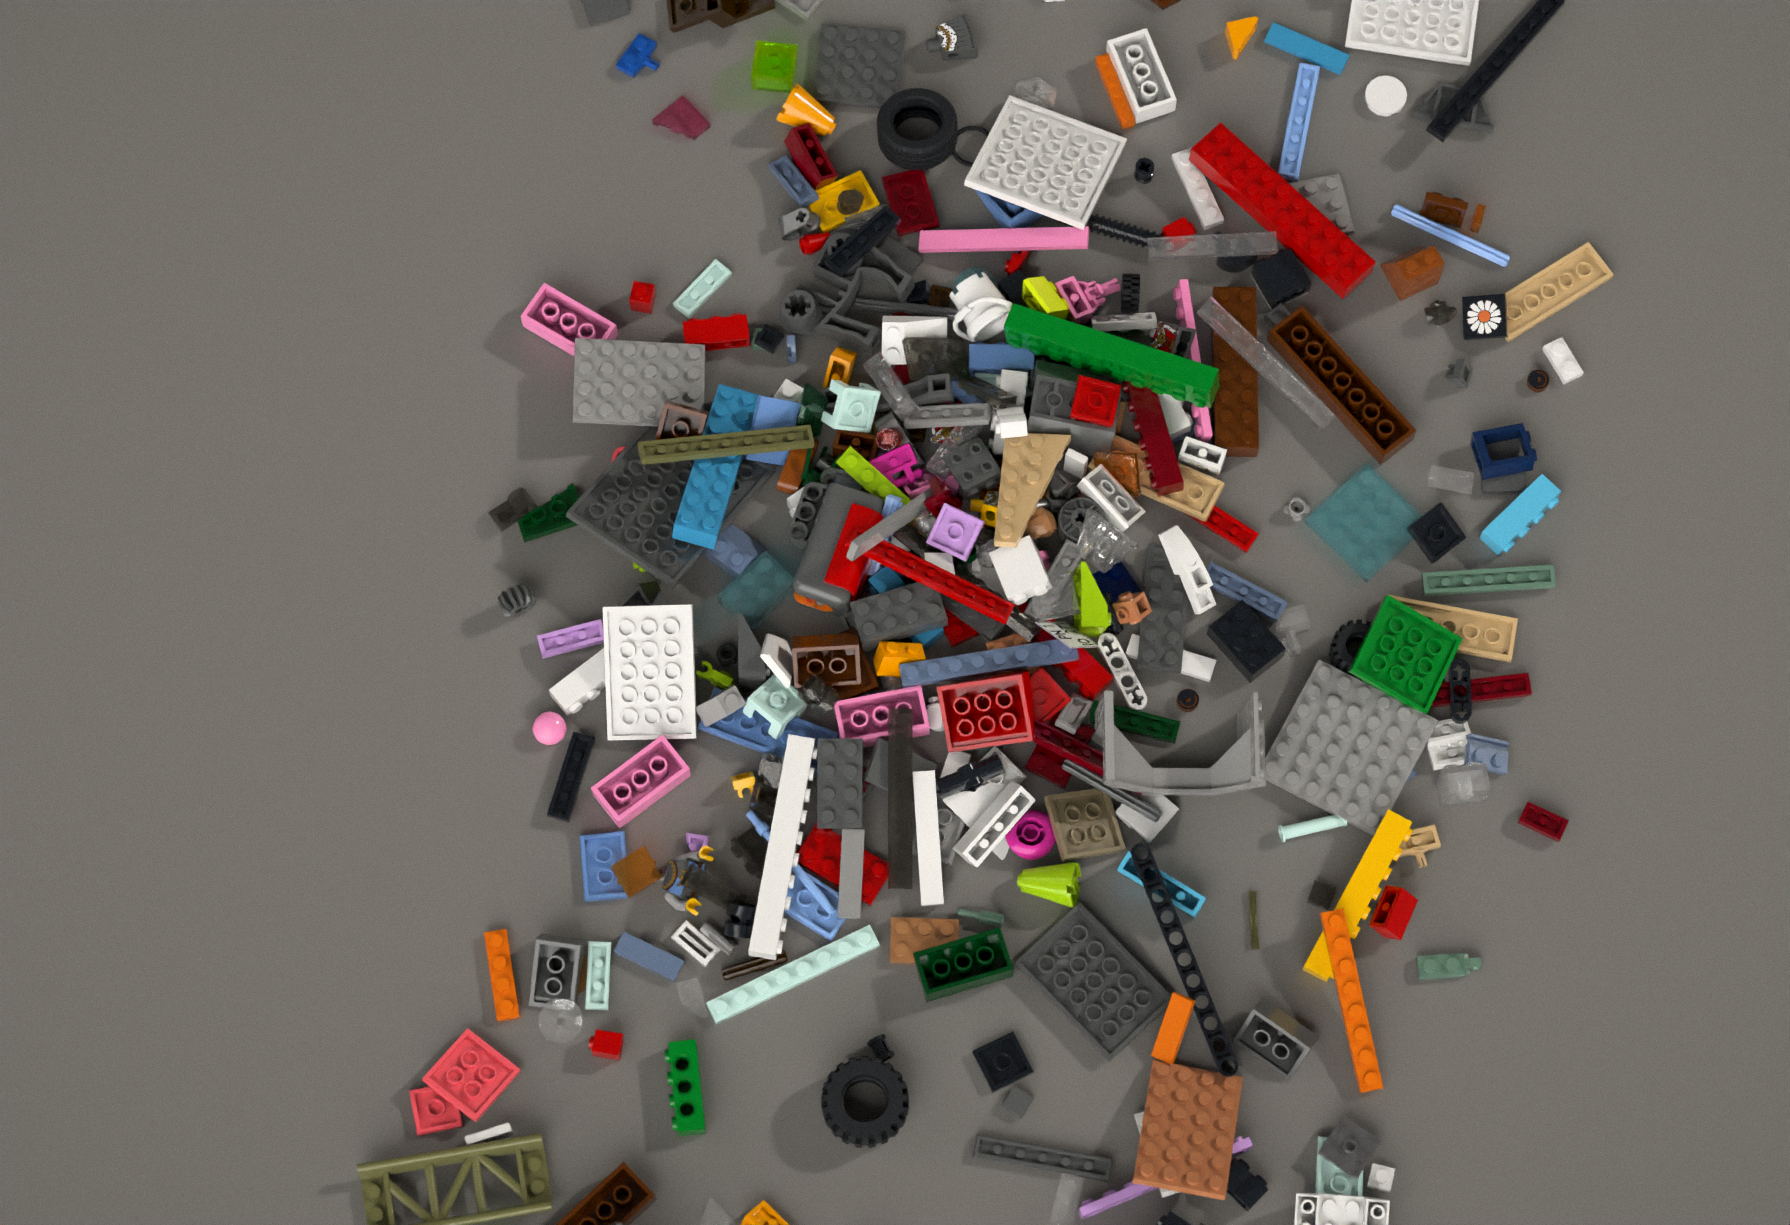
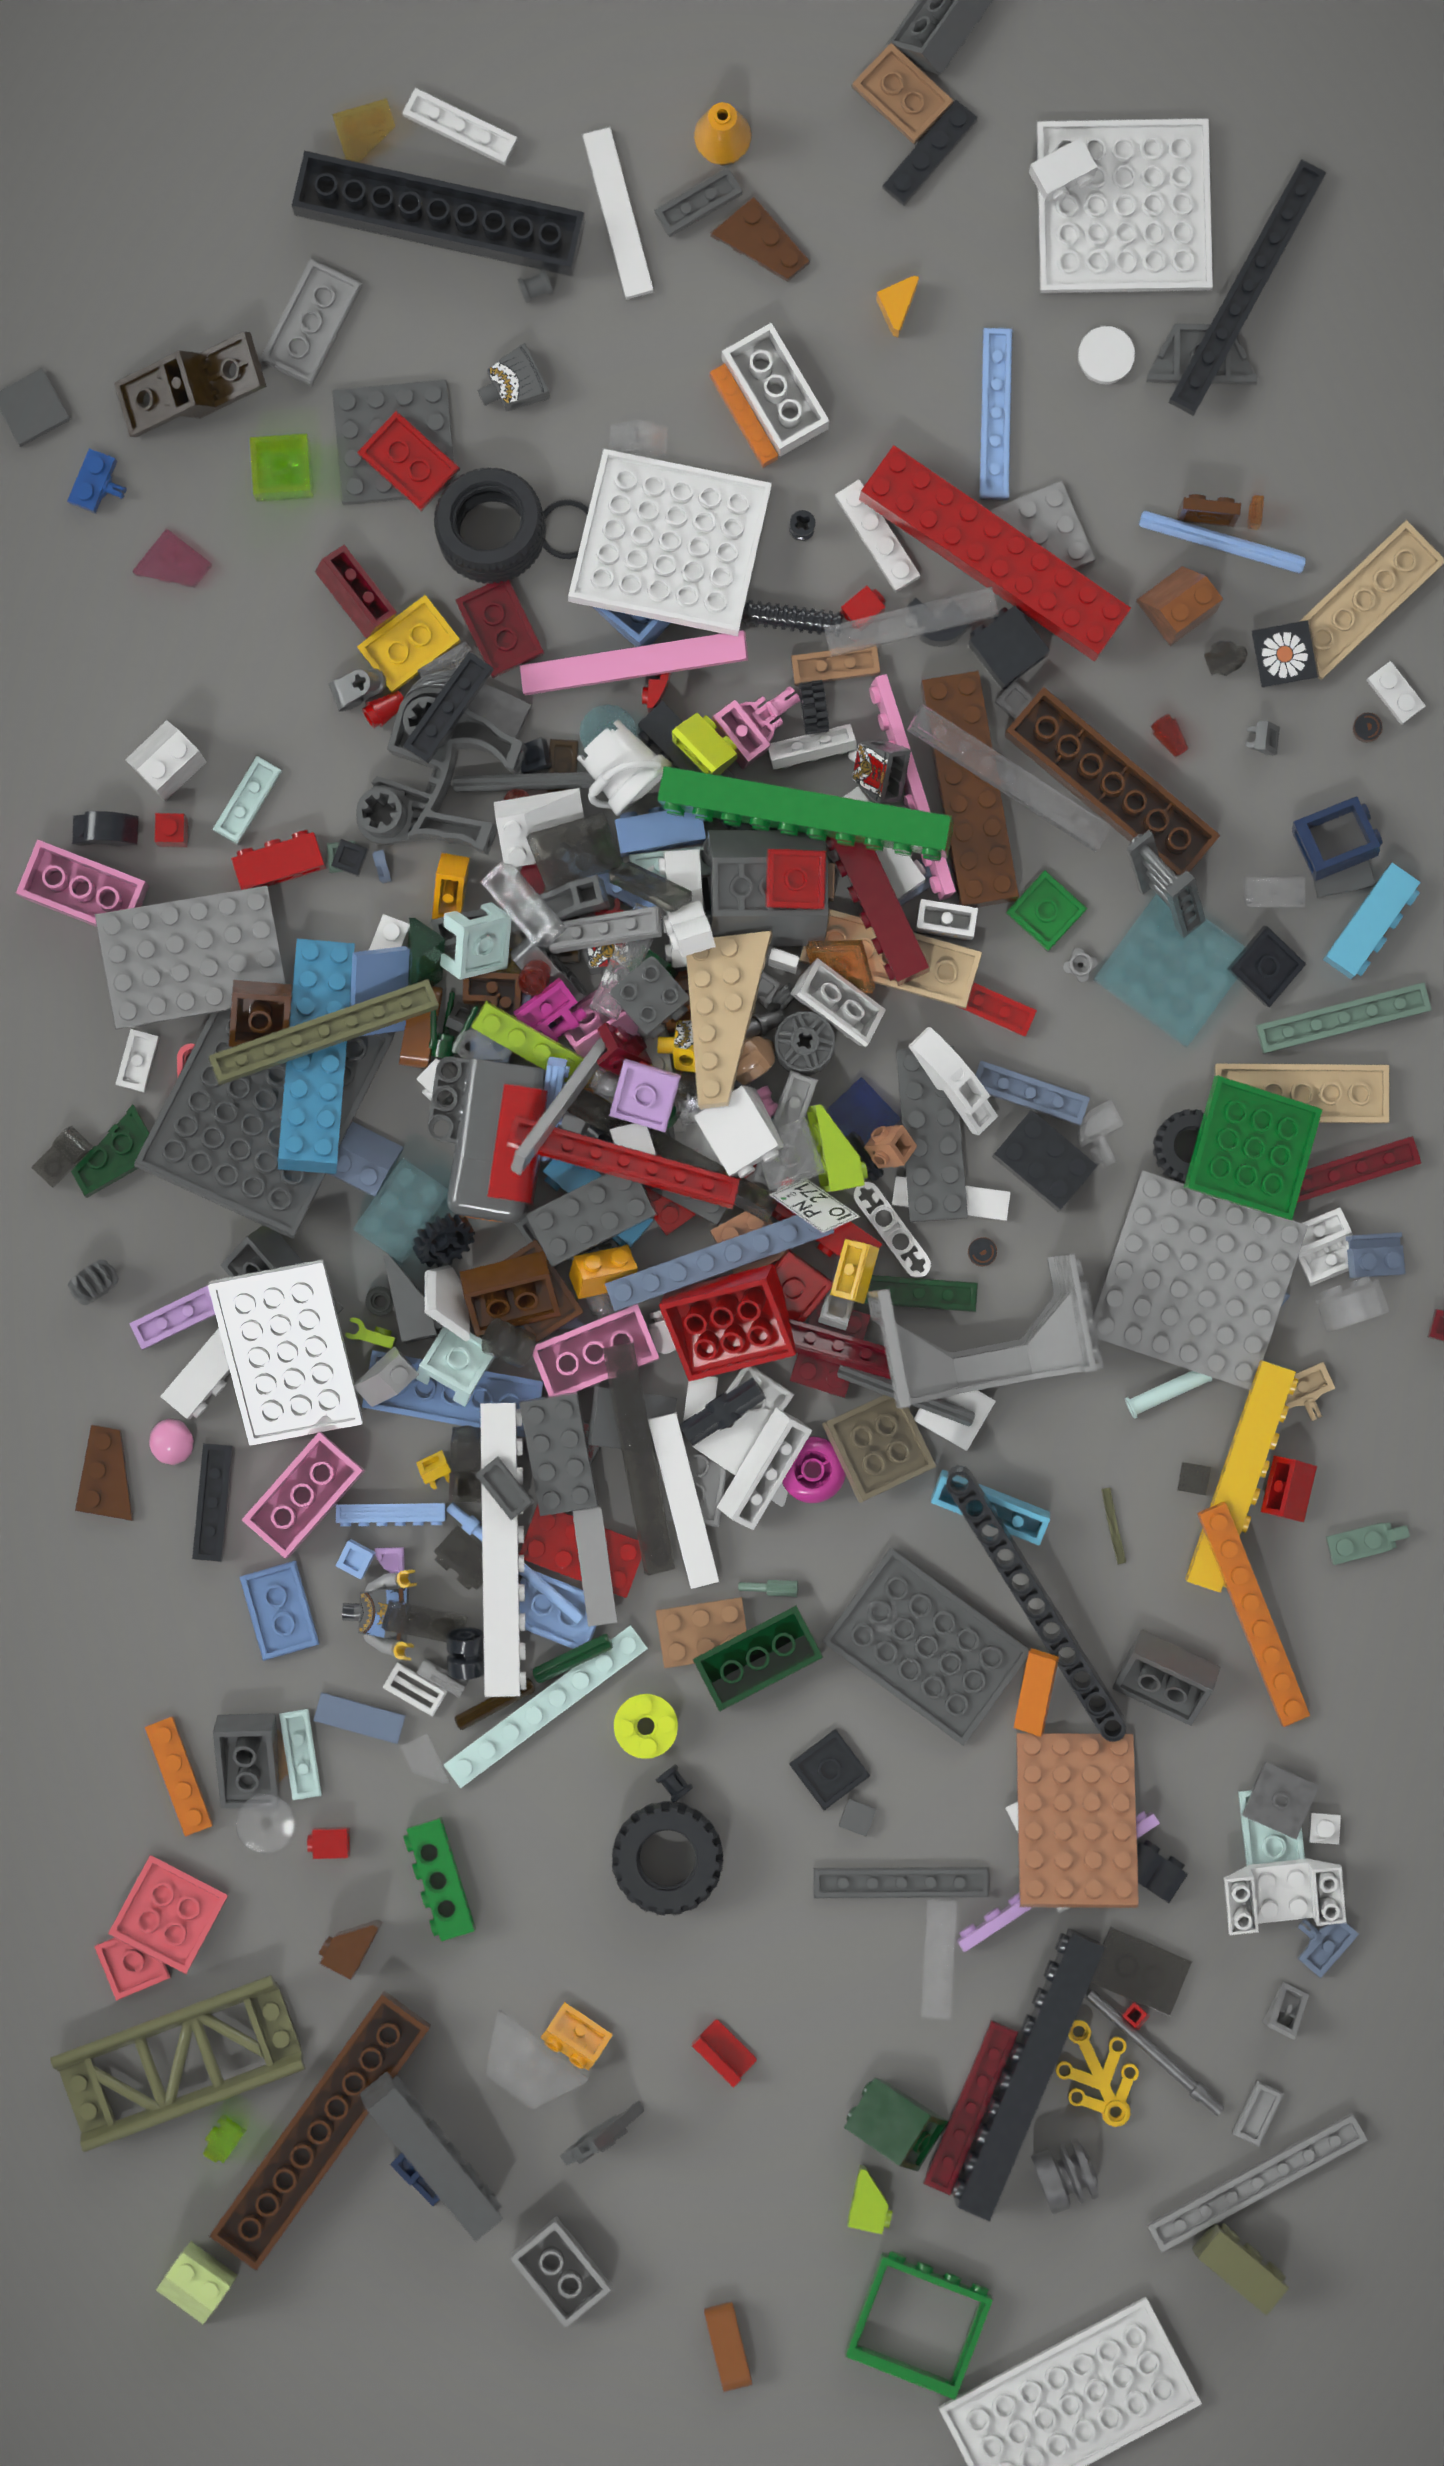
camera: 10 degrees left, 15 degrees up
(491, 1134) = (206, 1985): white tile -> none
(493, 744) = (104, 1476): none -> reddish brown wing
(583, 452) = (137, 1060): none -> white plate
(595, 286) = (105, 828): none -> black brick
(606, 1123) = (348, 1948): none -> reddish brown slope
(636, 871) = (322, 1614): clear orange piece -> none
(651, 249) = (166, 760): none -> white slope
(670, 837) = (355, 1559): none -> light blue plate
(704, 809) = (395, 1513): none -> light blue piece
(784, 615) = (443, 1240): none -> black gear
(793, 181) = (338, 627): sand blue tile -> none
(794, 798) = (504, 1488): none -> dark grey tile
(804, 109) = (332, 524): light orange cone -> none
(820, 940) = (572, 1658): none -> dark green axle
(850, 202) = (420, 647): clear smoke rock -> none
(866, 78) = (408, 461): none -> red tile
(871, 987) = (645, 1707): none -> neon yellow wheel
(1052, 882) = (851, 1530): lime cone -> none
(1089, 691) = (854, 1271): none -> yellow slope
(1102, 542) = (838, 1069): clear wing -> none
(1153, 270) = (826, 668): none -> medium nougat plate
(1277, 467) = (1046, 910): none -> green tile
(1306, 48) = (989, 305): dark azure tile -> none
(1370, 452) = (1175, 890): none -> dark grey fence
(1390, 360) = (1169, 735): none -> clear red cone
(1466, 707) = (1339, 1199): black beam -> none

